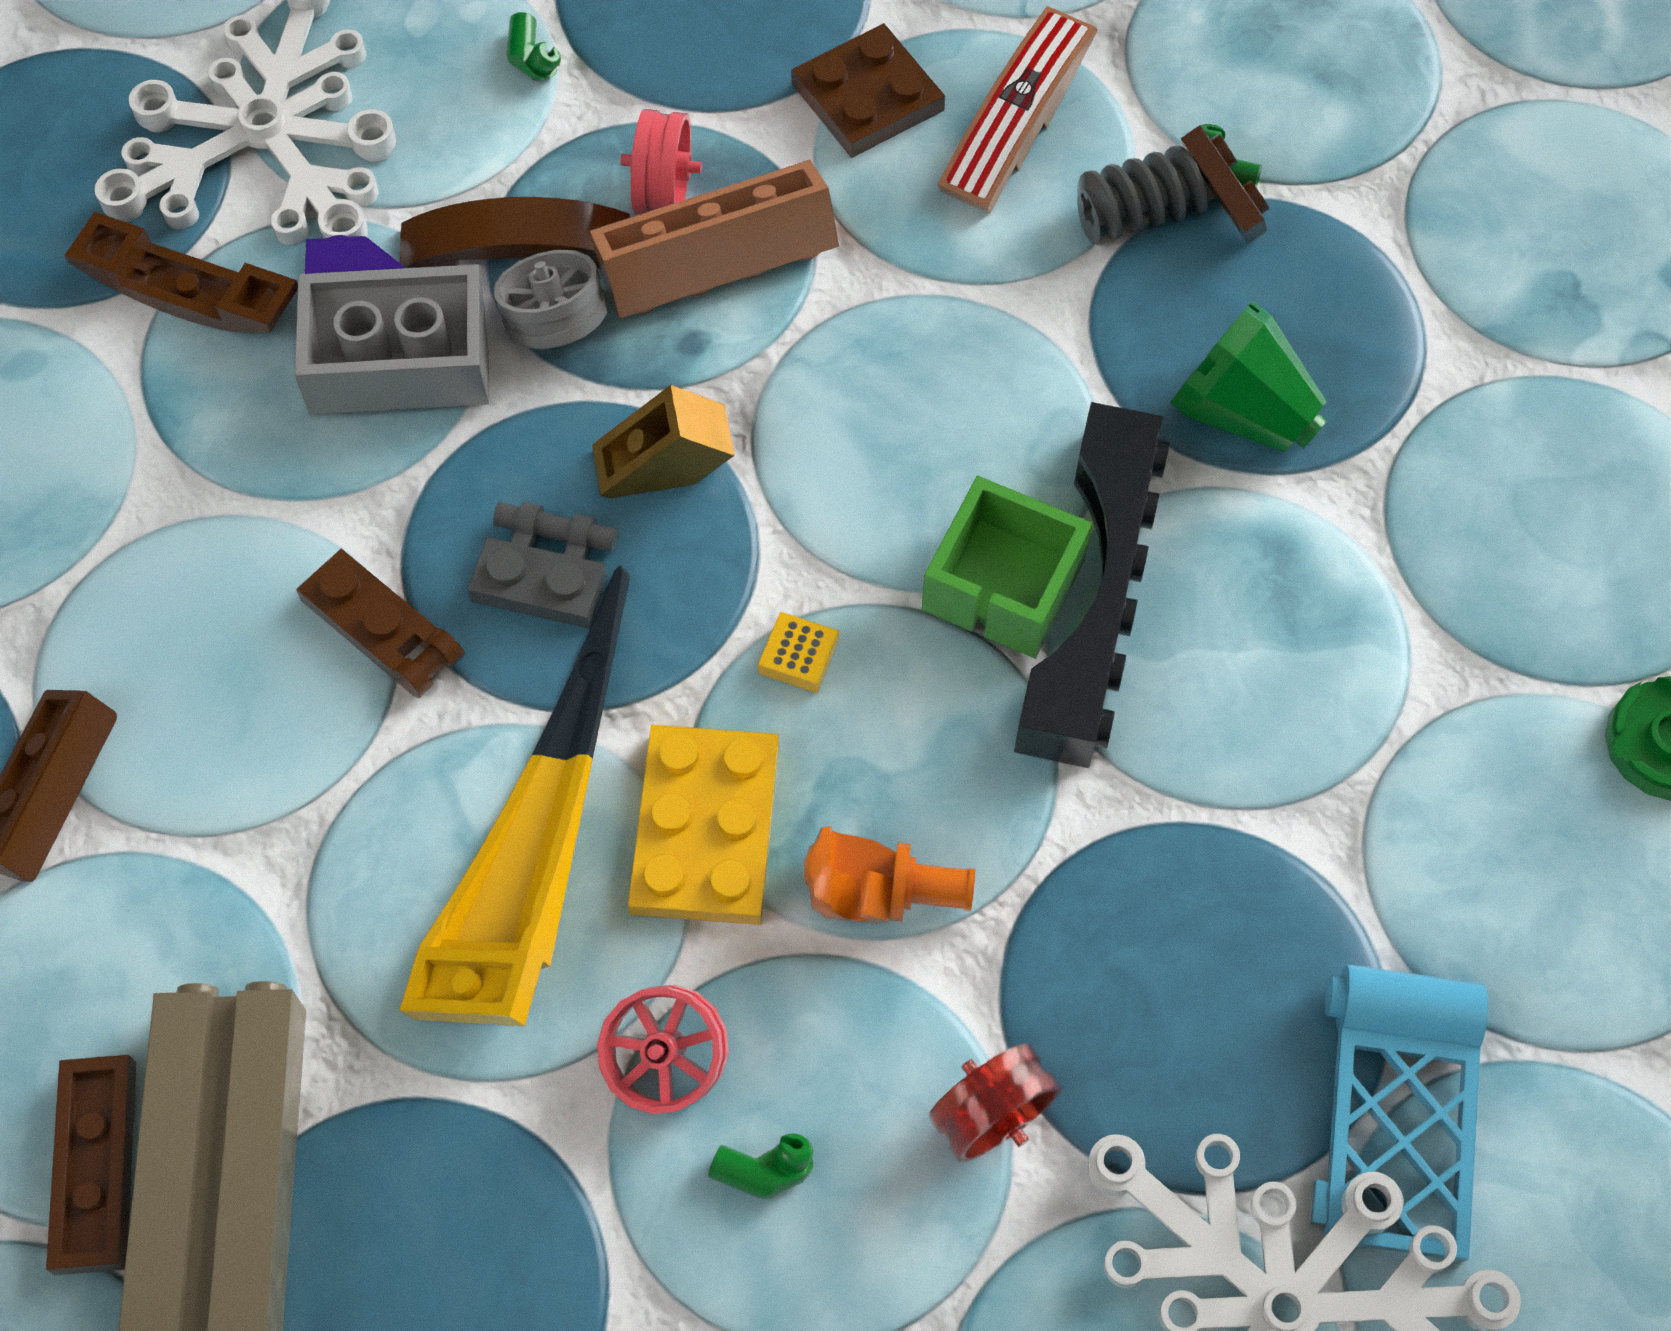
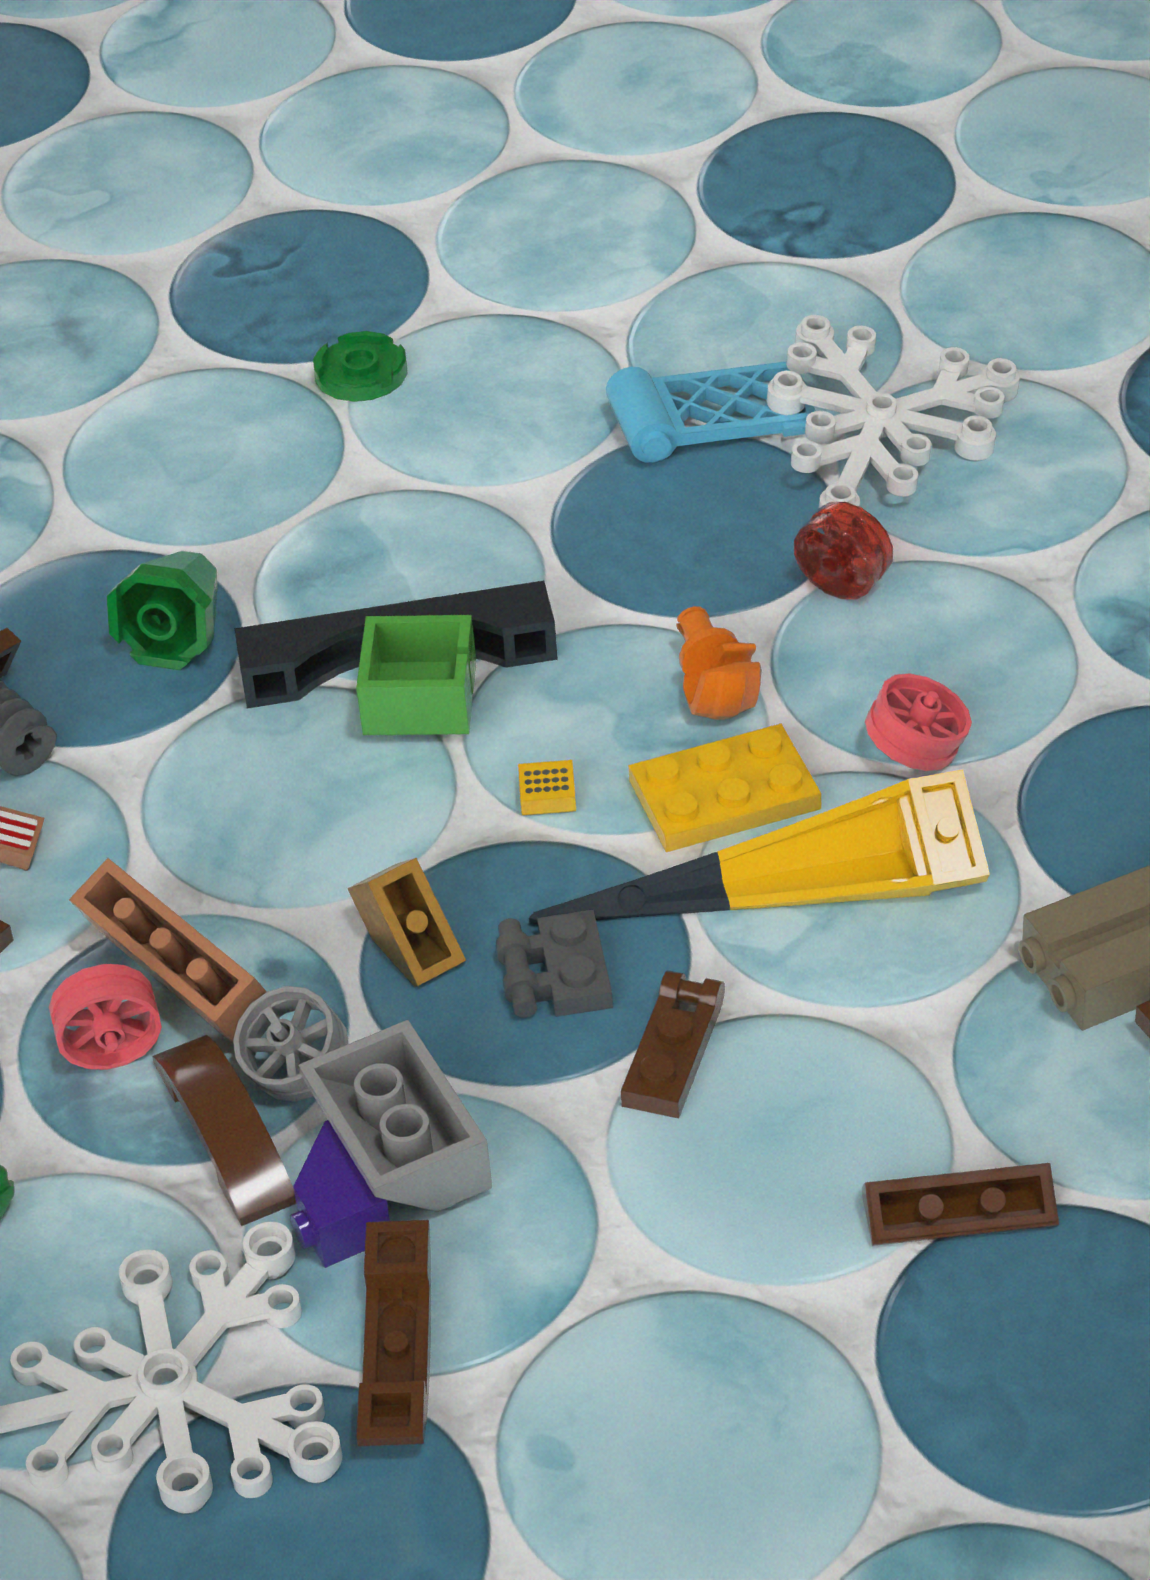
camera: 110 degrees left, 20 degrees down
(768, 1174) = (959, 660): green arm -> none

